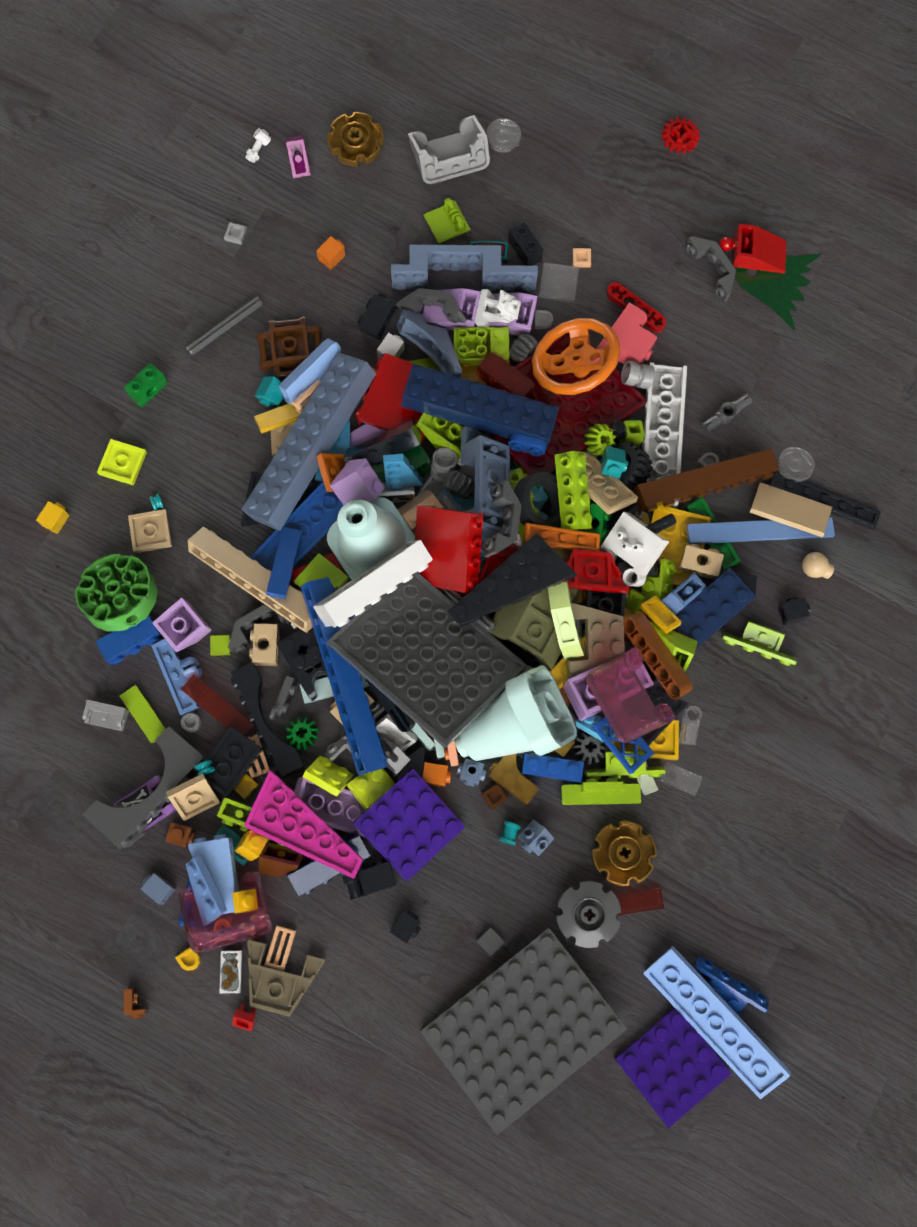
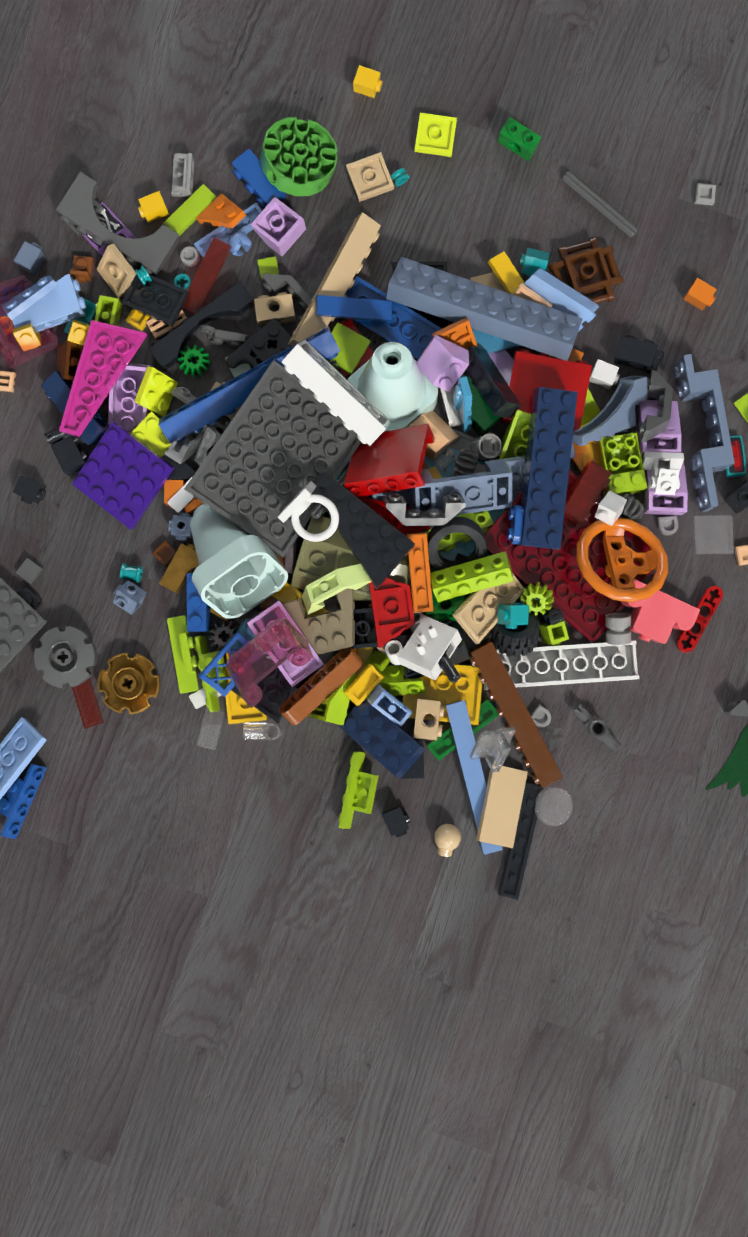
camera: 80 degrees right, 10 degrees up
(132, 750) = (152, 207): none -> yellow brick
(154, 681) = (221, 213): none -> orange wing
(212, 729) = (178, 279): none -> teal bush
(440, 762) = (180, 499): none -> white sticker
(480, 635) = (300, 504): none -> white tile
(525, 359) = (610, 508): none -> white brick
(738, 502) = (493, 747): none -> clear bracket

